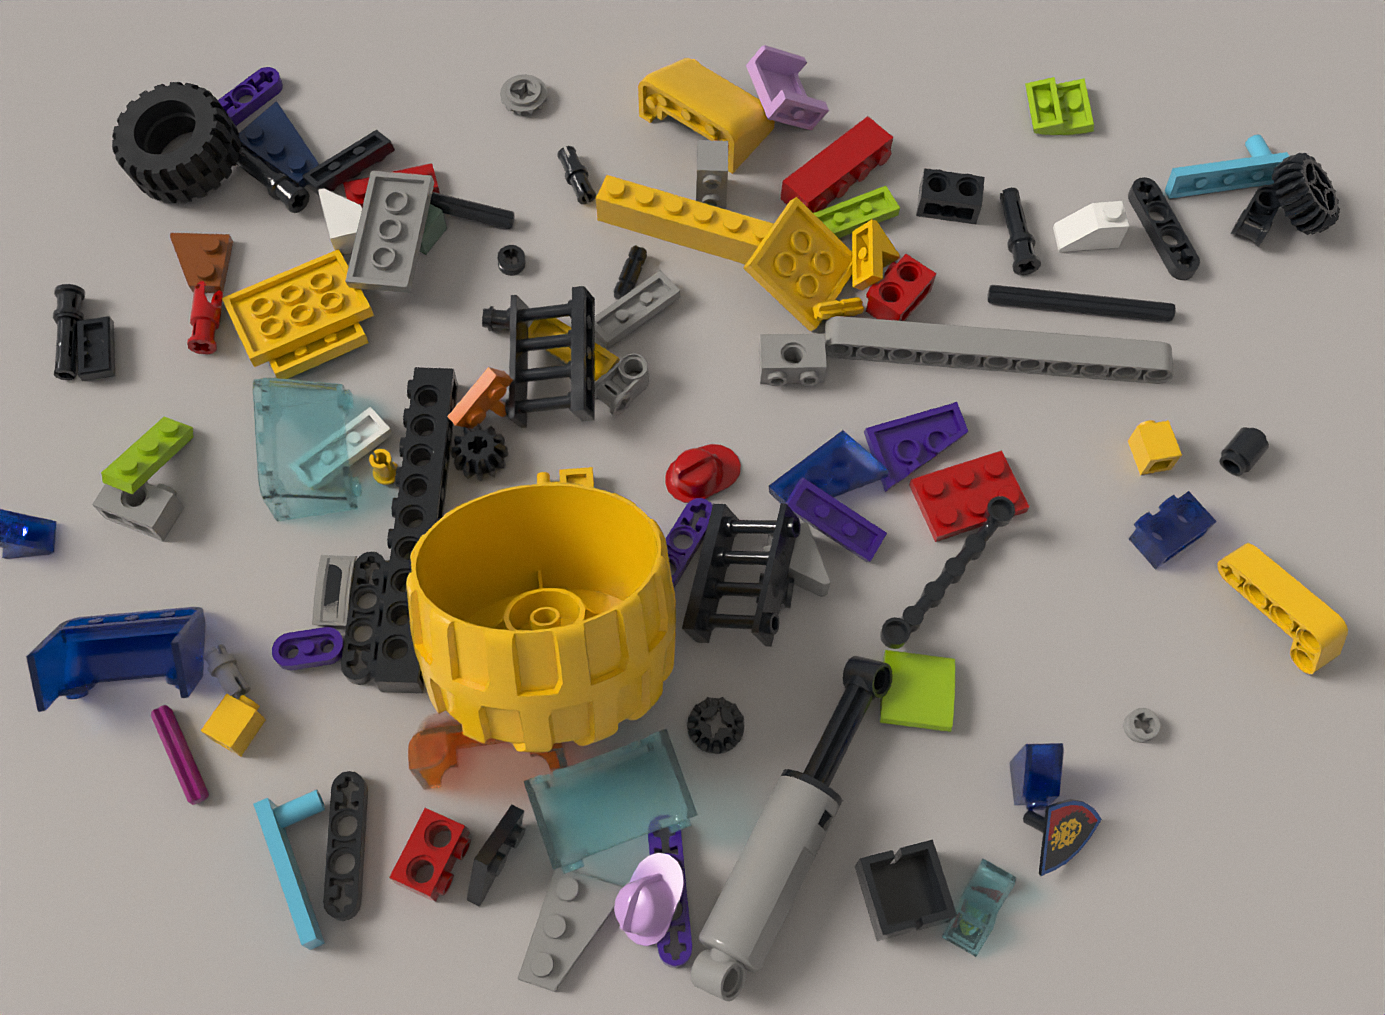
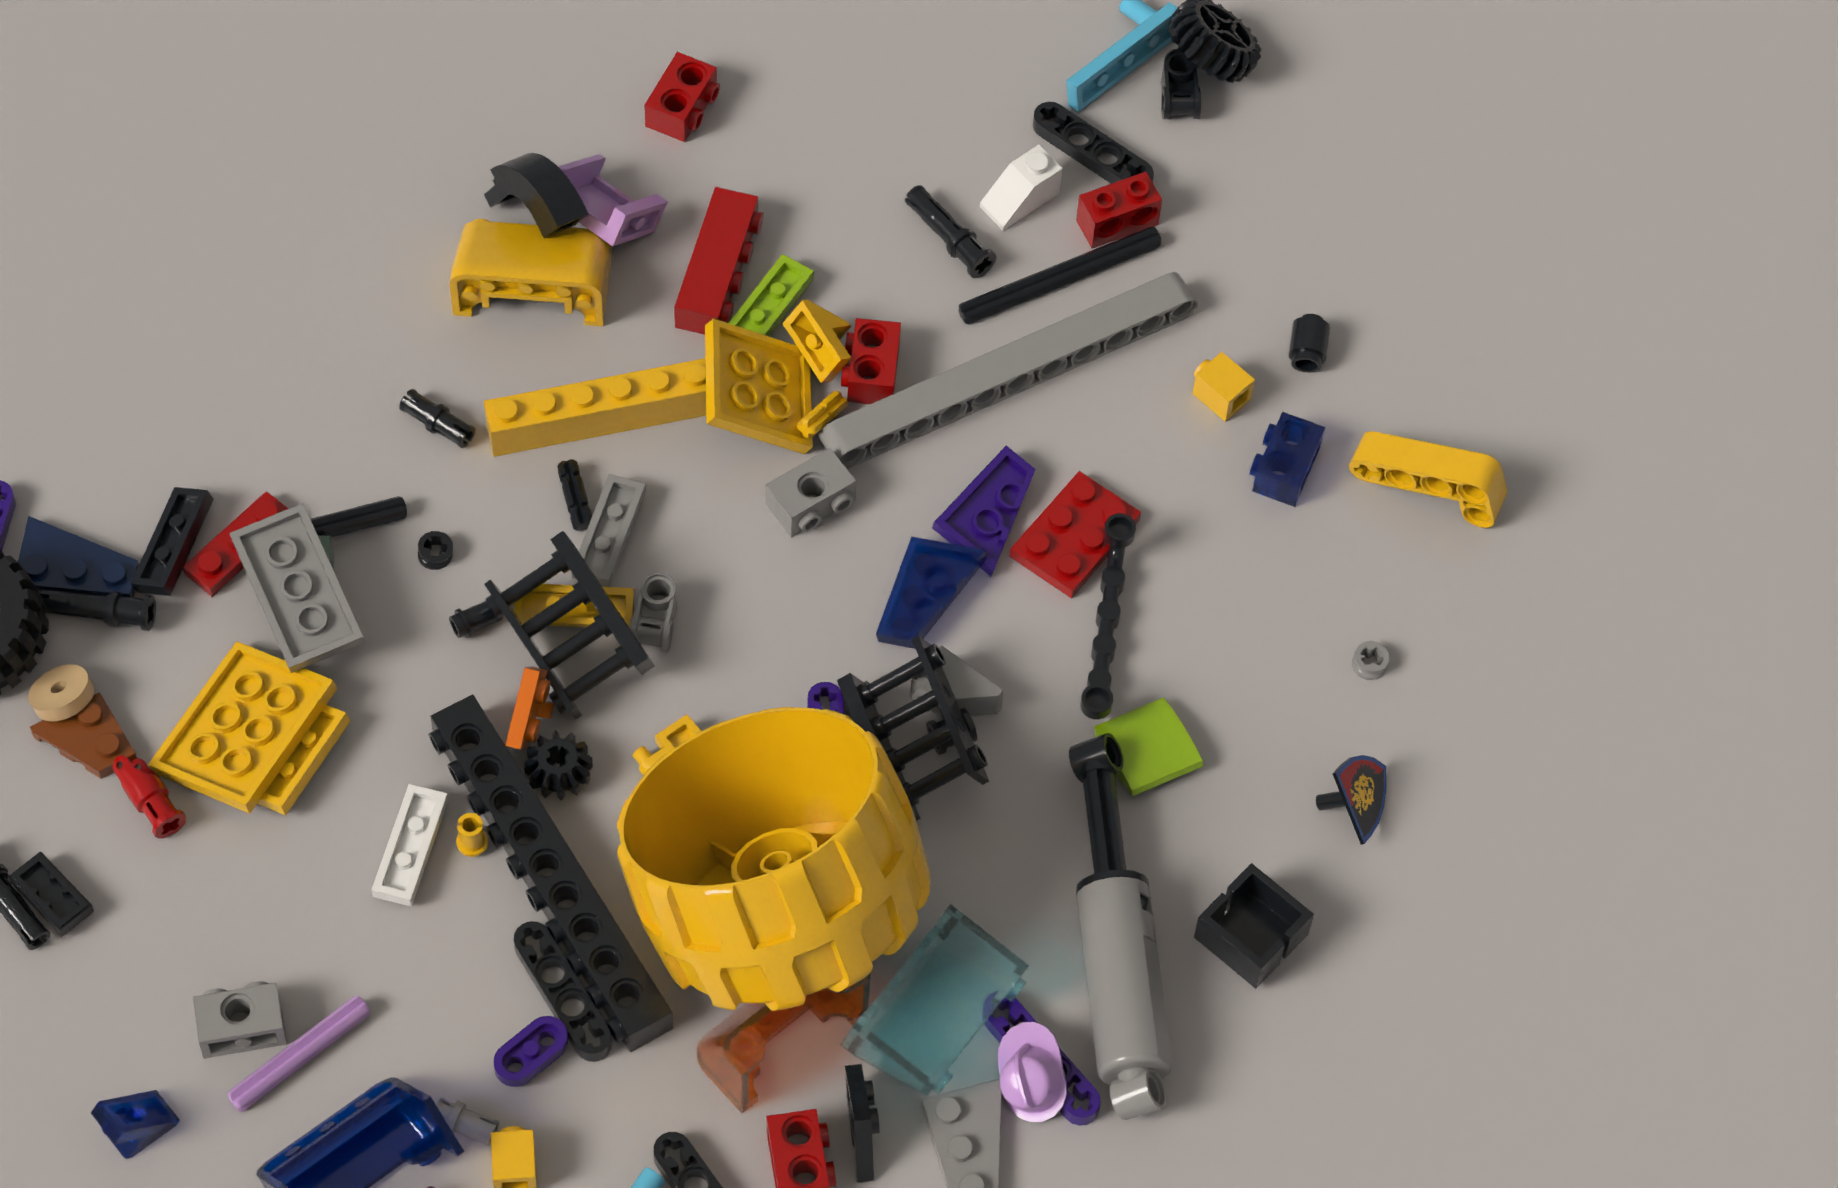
camera: 35 degrees left, 5 degrees down
(147, 455) = (213, 962): lime plate -> none
(160, 552) = (298, 1053): none -> lavender axle
(204, 221) = (61, 692): none -> tan piece
(303, 447) = (376, 859): clear light blue windscreen -> none
(333, 590) = (512, 982): light grey slope -> none
(341, 219) = (221, 608): white slope -> none
(516, 87) = (319, 347): light grey gear -> none
(702, 472) = (796, 659): red piece -> none
(712, 172) = (594, 339): light grey brick -> none
(725, 738) = (971, 902): black gear -> none
(742, 58) = (541, 188): none -> black arch
(835, 520) = (967, 628): dark purple plate -> none
(888, 50) = (684, 88): none -> red brick
(950, 196) = (858, 236): black brick -> none
(979, 907) = (1326, 897): clear light blue slope -> none
(1037, 775) = (1305, 756): clear blue slope -> none
(1059, 107) = (904, 67): lime slope -> none
(1155, 278) = (1118, 209): none -> red brick

